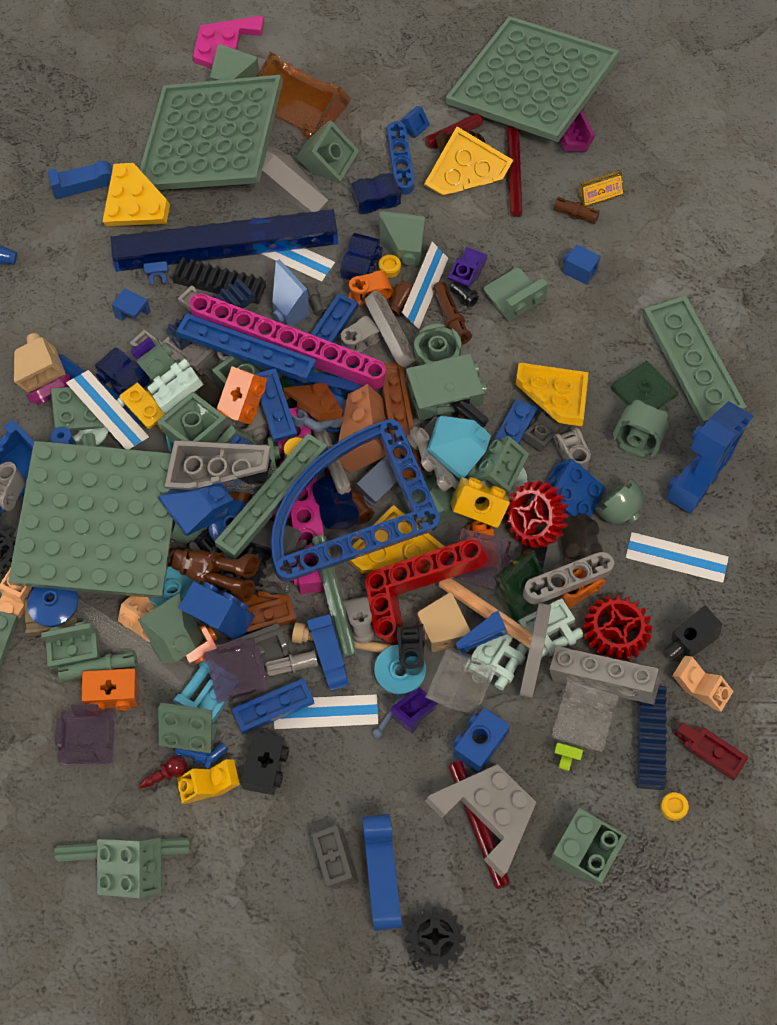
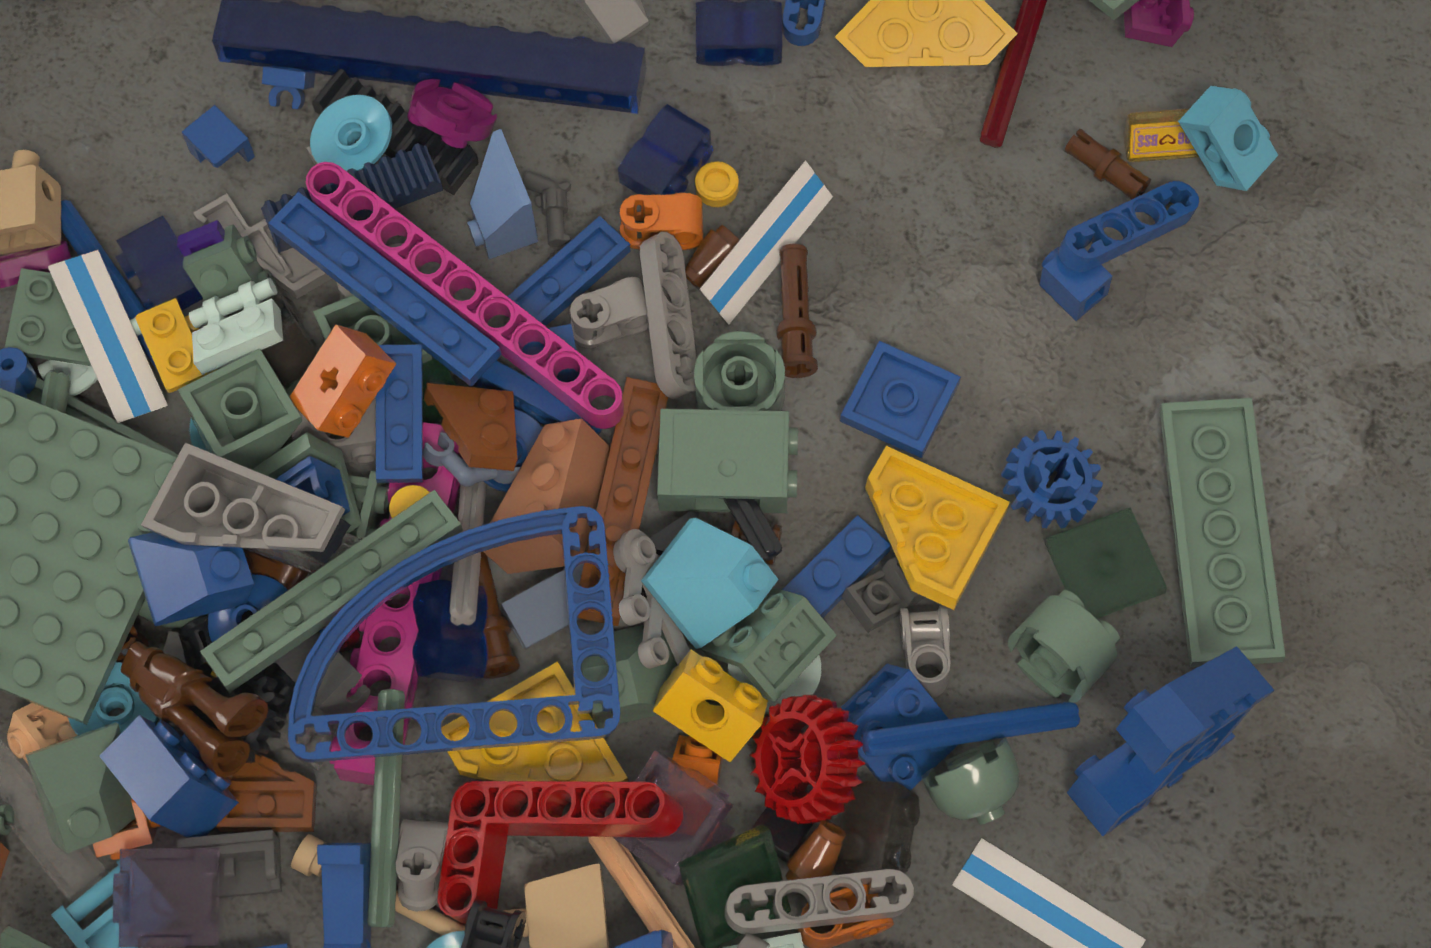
camera: 20 degrees right, 5 degrees up
(200, 277) = (343, 124): none -> medium azure dish
(247, 262) = (453, 113): none -> magenta plate
(291, 663) = (276, 908): light grey axle -> none
(304, 261) = (564, 132): white sticker -> none
(403, 236) = (757, 138): sand green slope -> none
(468, 268) = (859, 232): dark purple slope -> none
(468, 296) = (839, 285): black pin -> none
(515, 293) = (929, 303): sand green bracket -> none
(517, 340) = (900, 399): none -> blue plate
(557, 557) = (818, 853): none -> dark orange cone
(585, 245) = (1123, 219): none -> blue beam
(605, 356) = (1073, 485): none -> blue gear
(611, 478) = (970, 729): none -> blue axle
(632, 181) = (1228, 137): none -> medium azure brick

